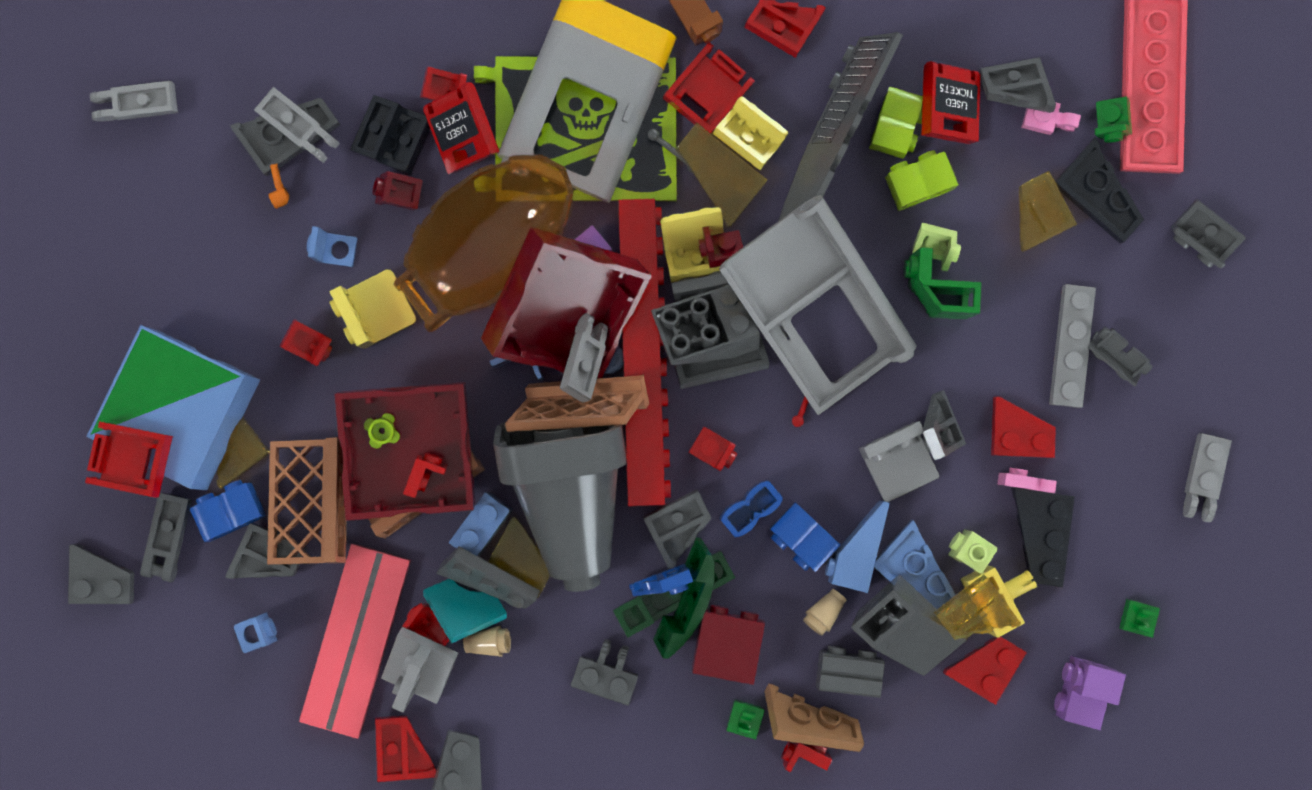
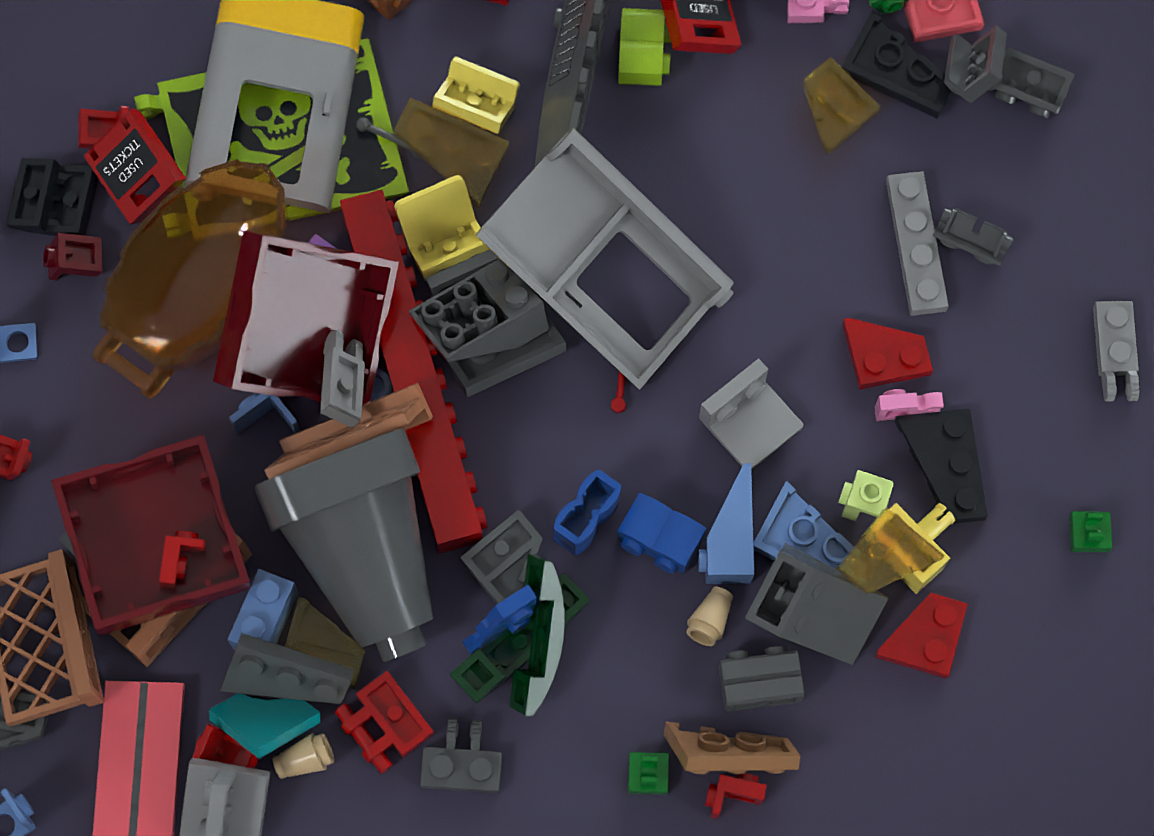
camera: 15 degrees left, 15 degrees down
(372, 309) = (74, 397): light yellow bracket -> none
(375, 436) = (118, 508): lime plate -> none
(563, 627) = (394, 715): none -> red plate
(710, 85) = (416, 57): red container -> none
(713, 449) = (525, 461): red bracket -> none
(719, 246) = (468, 224): dark red bracket -> none
(728, 645) = (602, 681): dark red brick -> none
(919, 273) = (746, 216): green piece -> none
(921, 180) = (687, 102): lime brick -> none
(941, 240) = (725, 166): yellowish green bracket -> none
(941, 428) = (788, 367): dark grey wing -> none
(1087, 691) = (1052, 625): medium lavender brick -> none
(1167, 209) = (977, 66): none -> dark grey bracket

